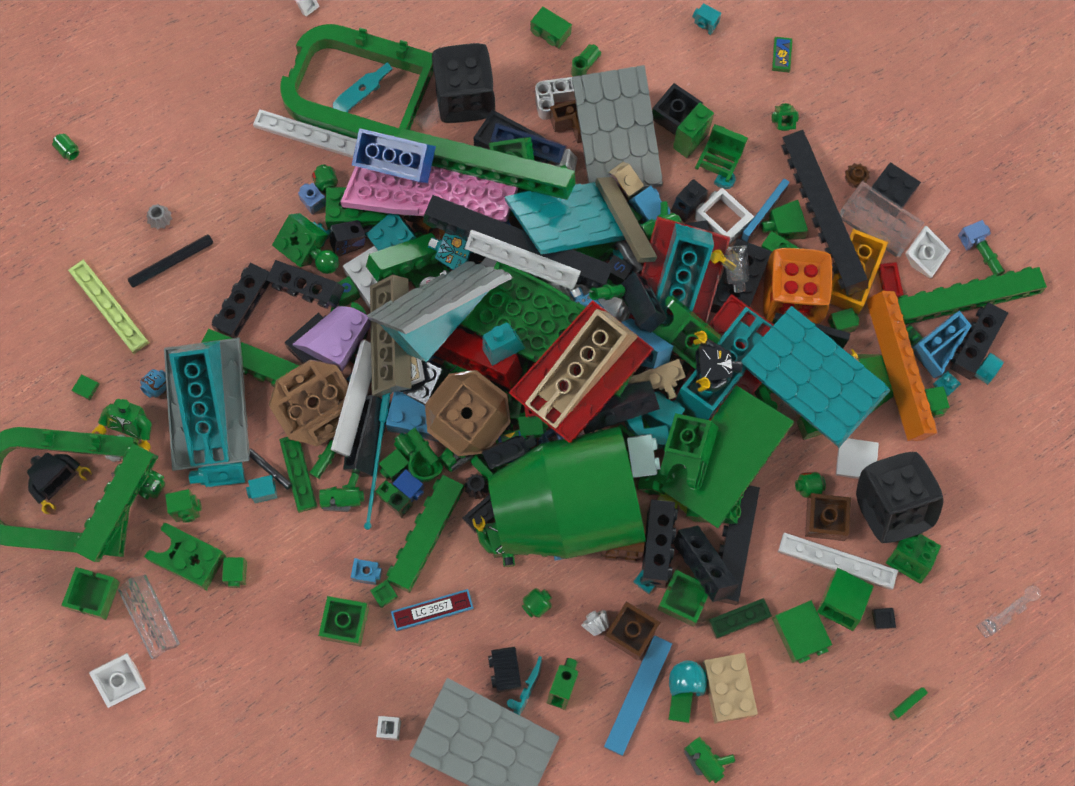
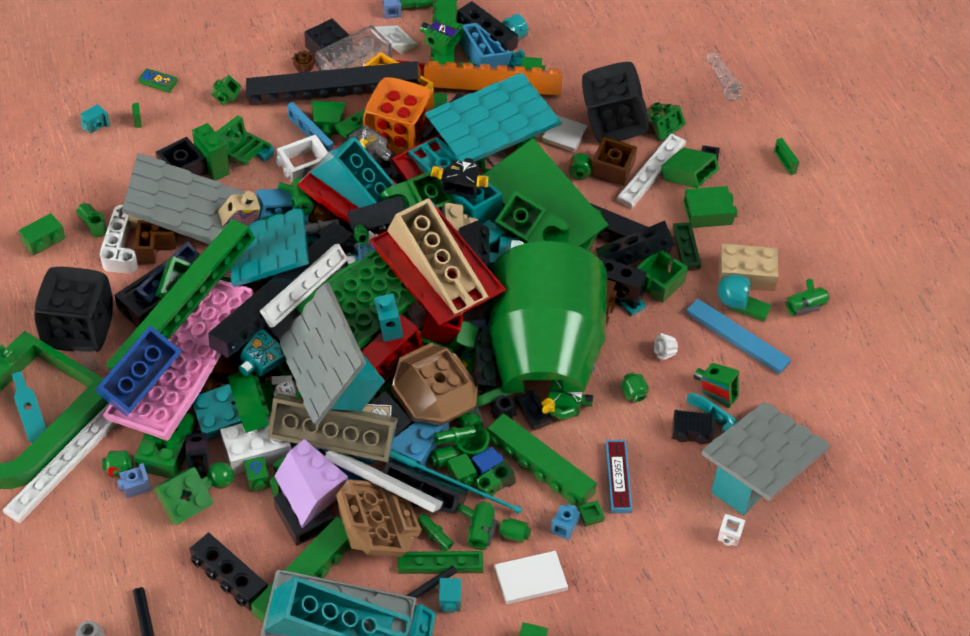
camera: 75 degrees left, 20 degrees down
(282, 272) = (239, 489): black brick -> none
(301, 555) = (531, 577): none -> white tile
(343, 621) = (613, 547): green brick -> none
(344, 528) = (515, 530): none -> green brick
(626, 220) = (291, 211): dark tan tile -> none
(632, 630) = (681, 319): reddish brown brick -> none
(691, 197) = (274, 171): black torso -> none
(725, 52) = (137, 115): none -> green tile
(936, 296) = (442, 35): none -> green torso

